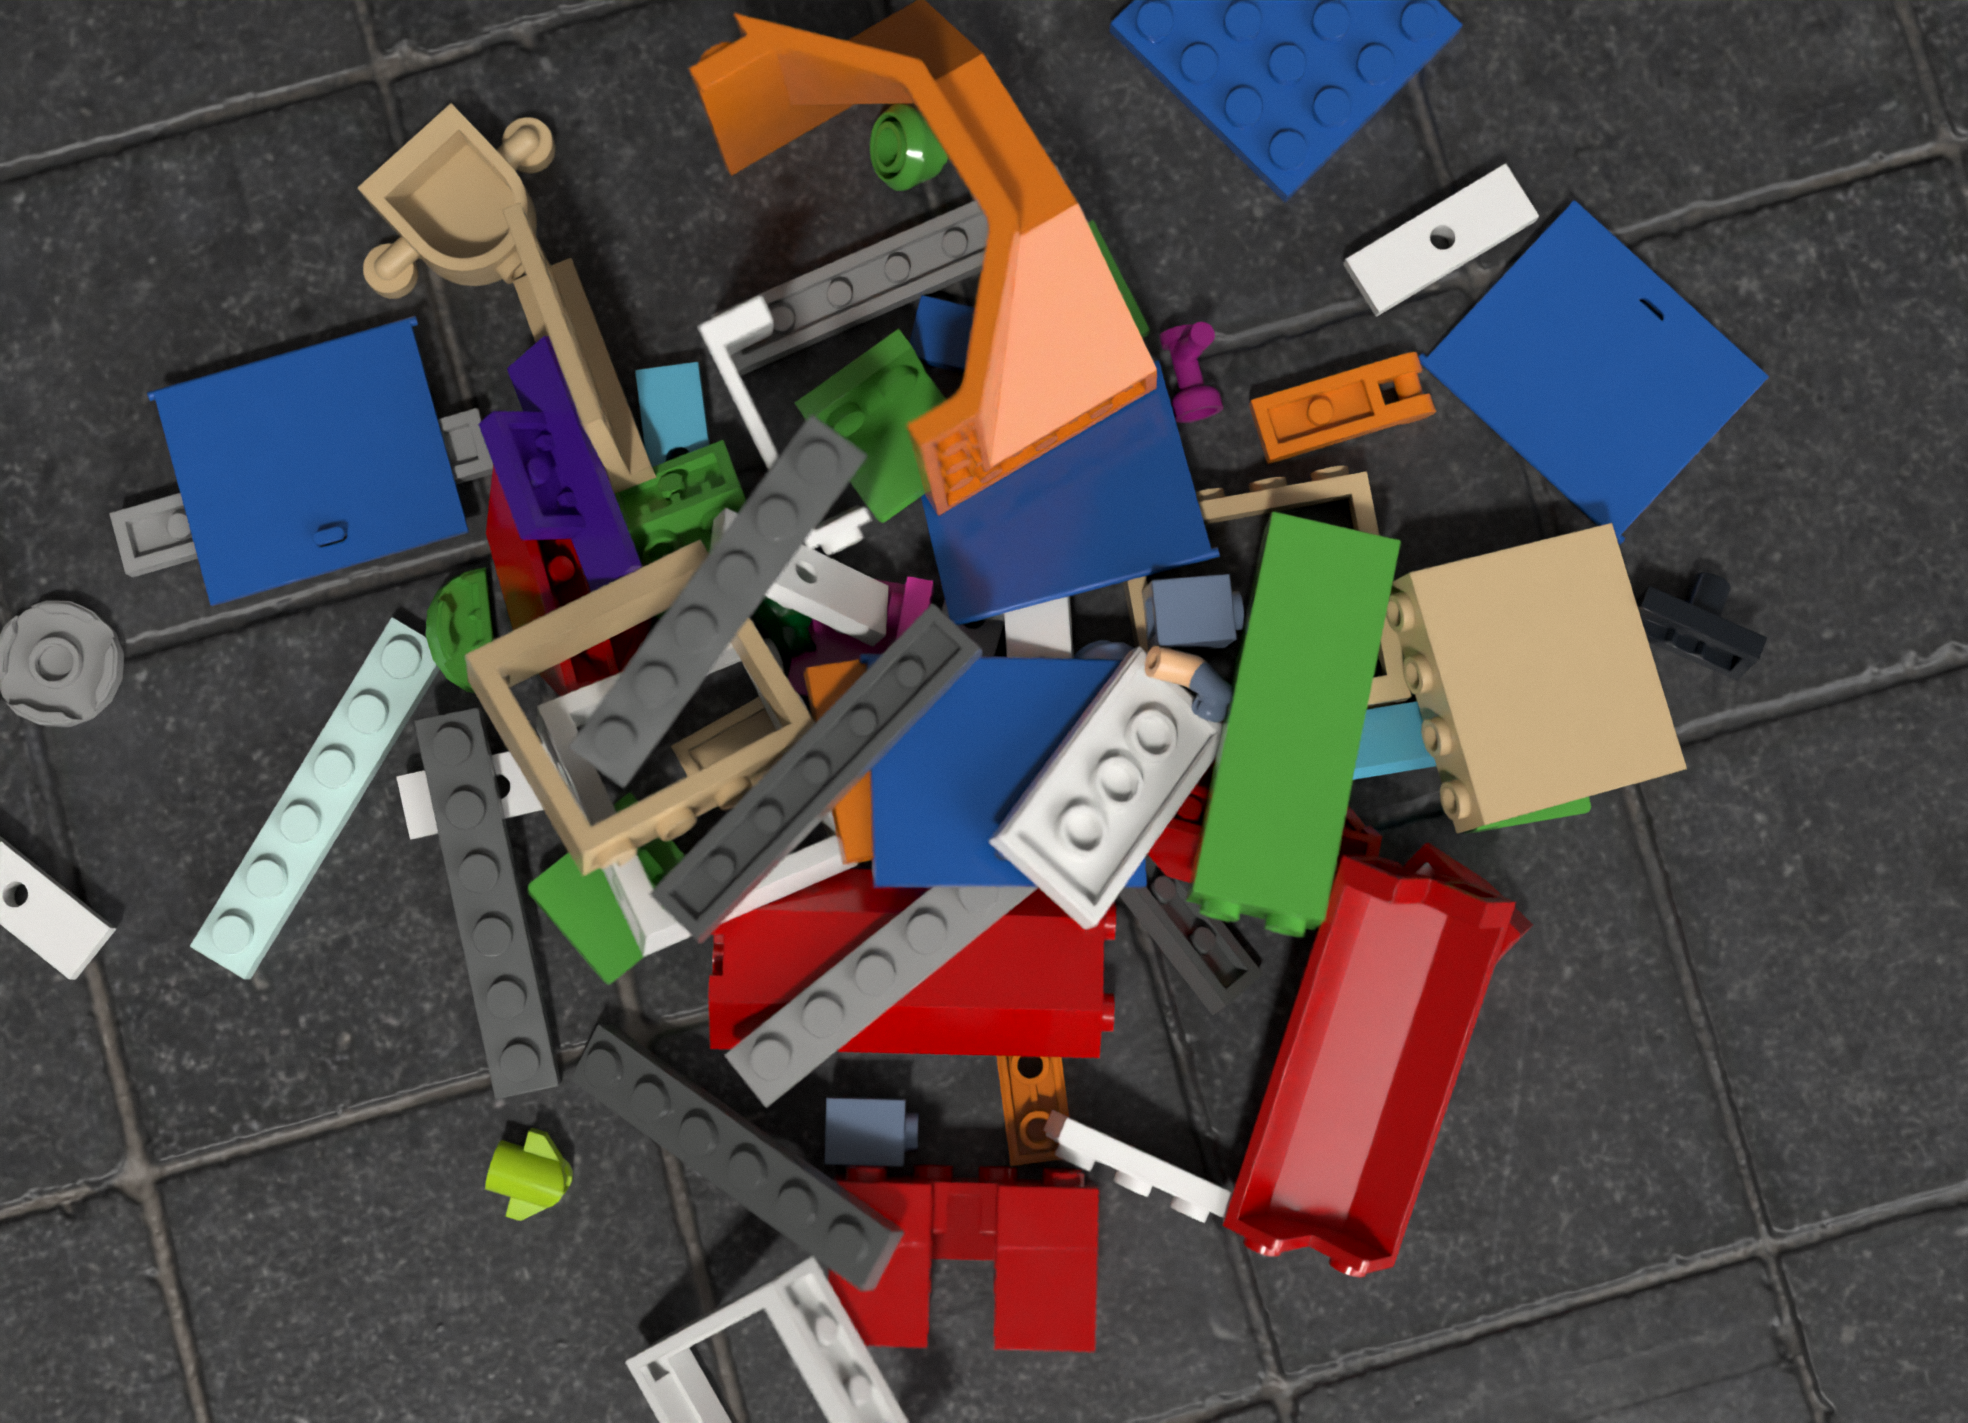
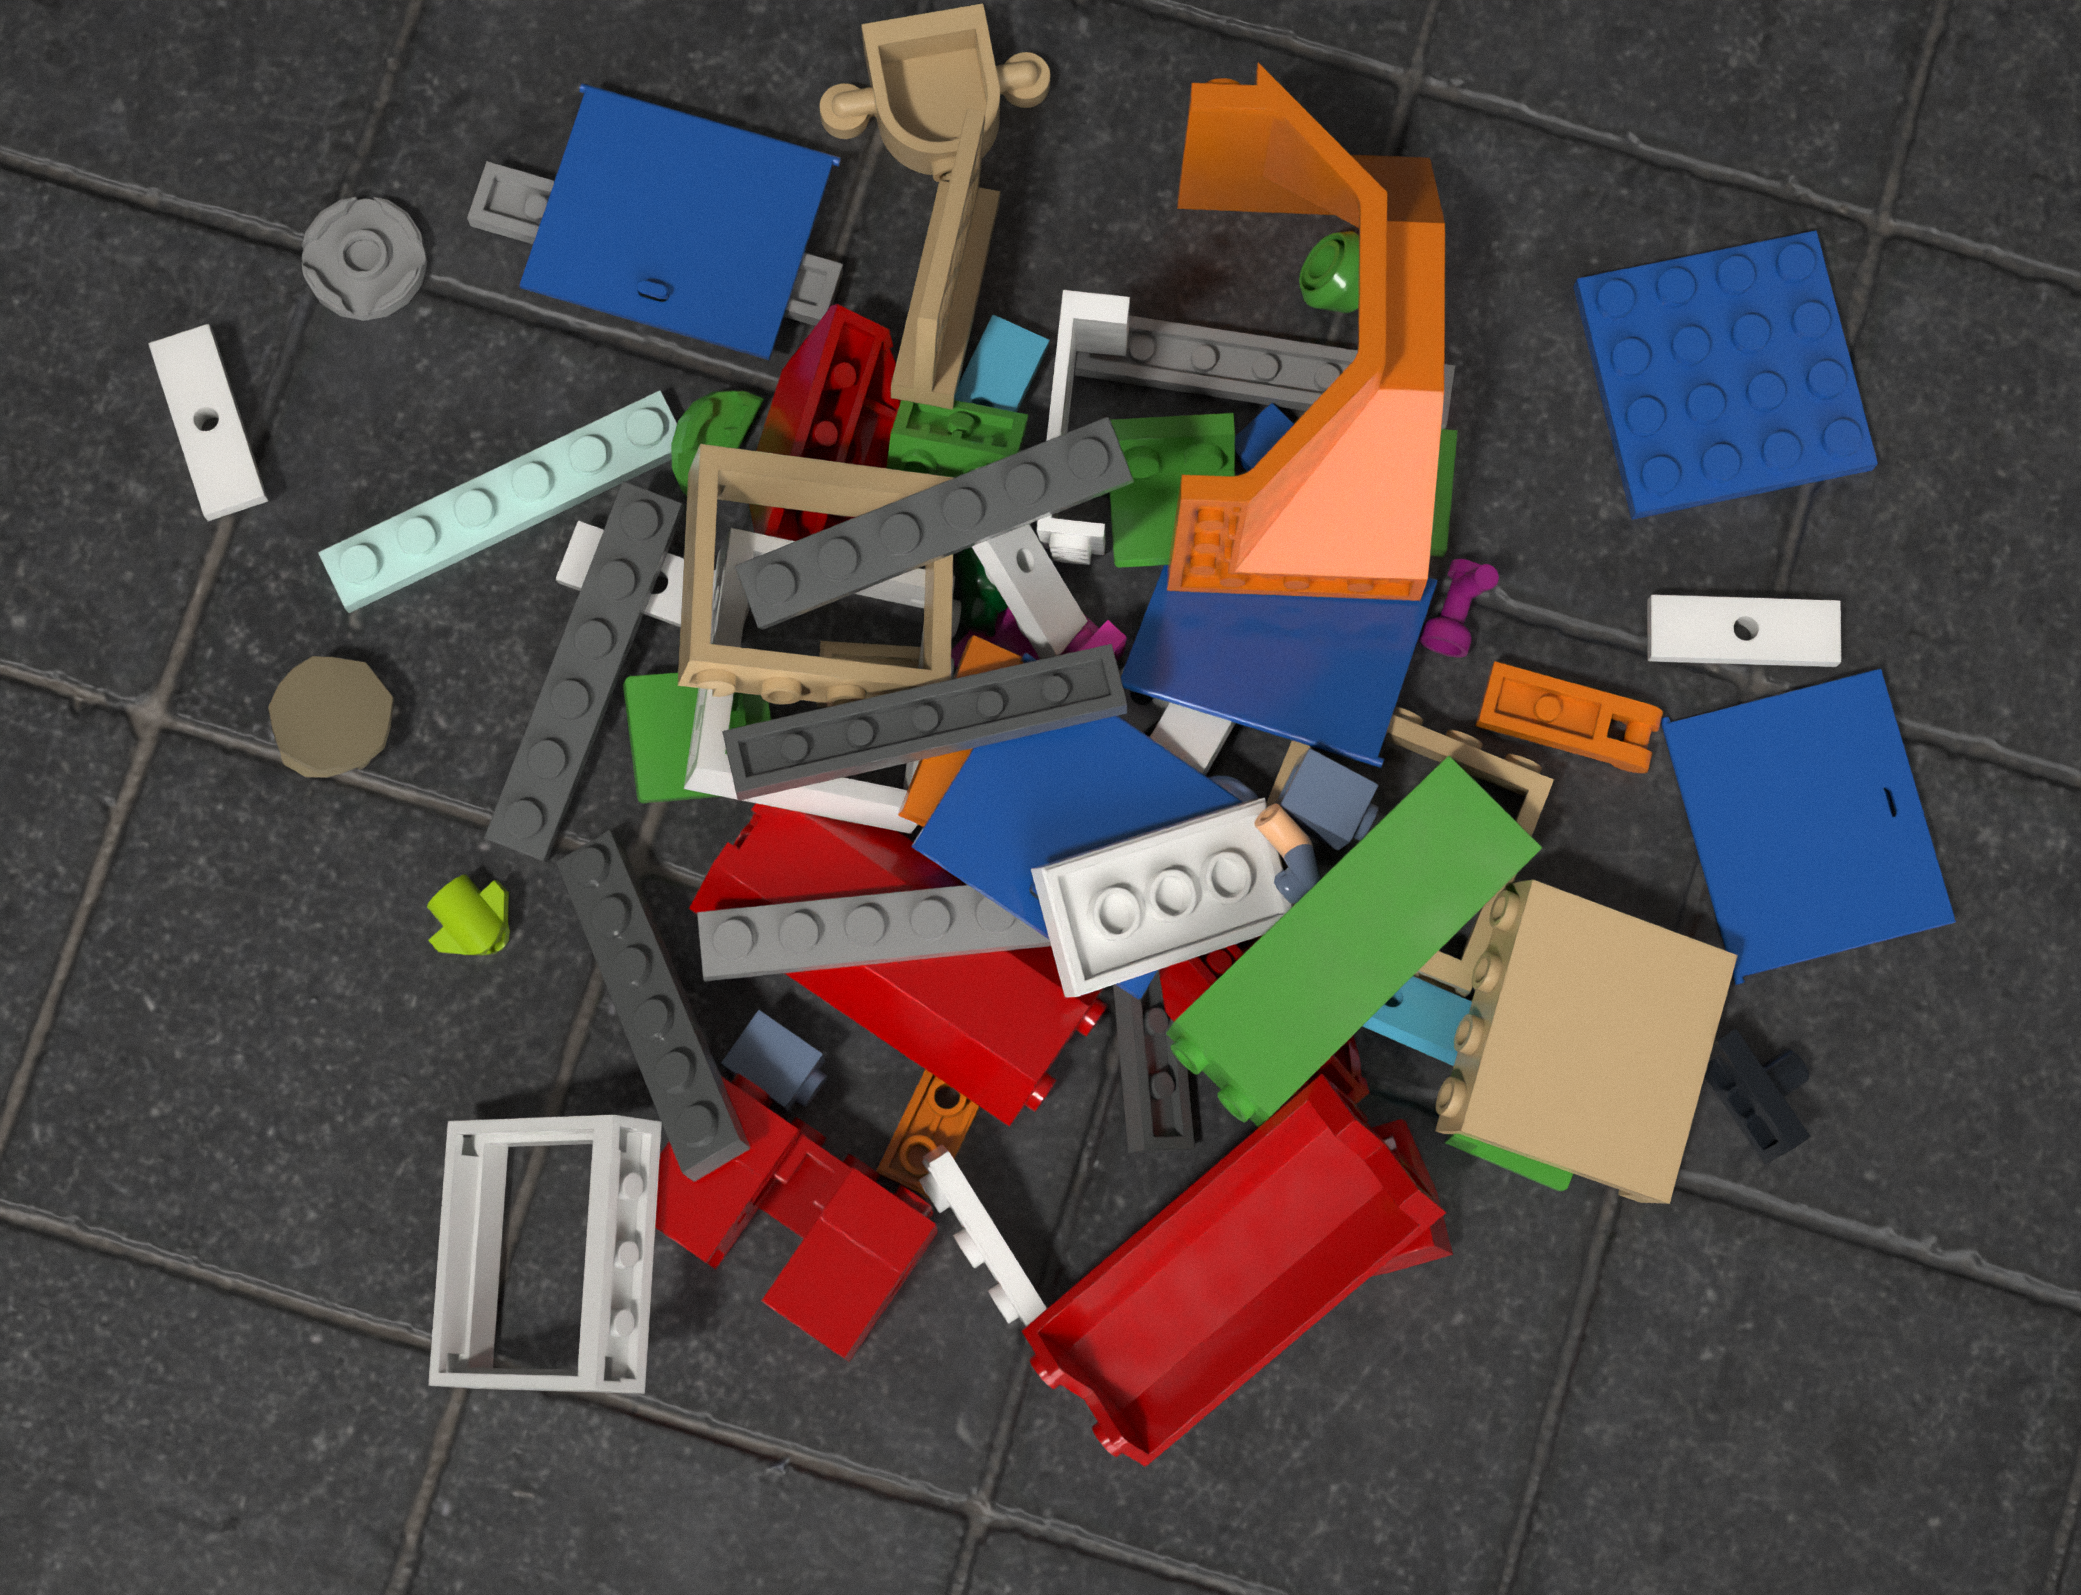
camera: 30 degrees right, 5 degrees down
(295, 1080) = (330, 716): none -> dark tan hat
(554, 472) = (870, 348): dark purple bracket -> none

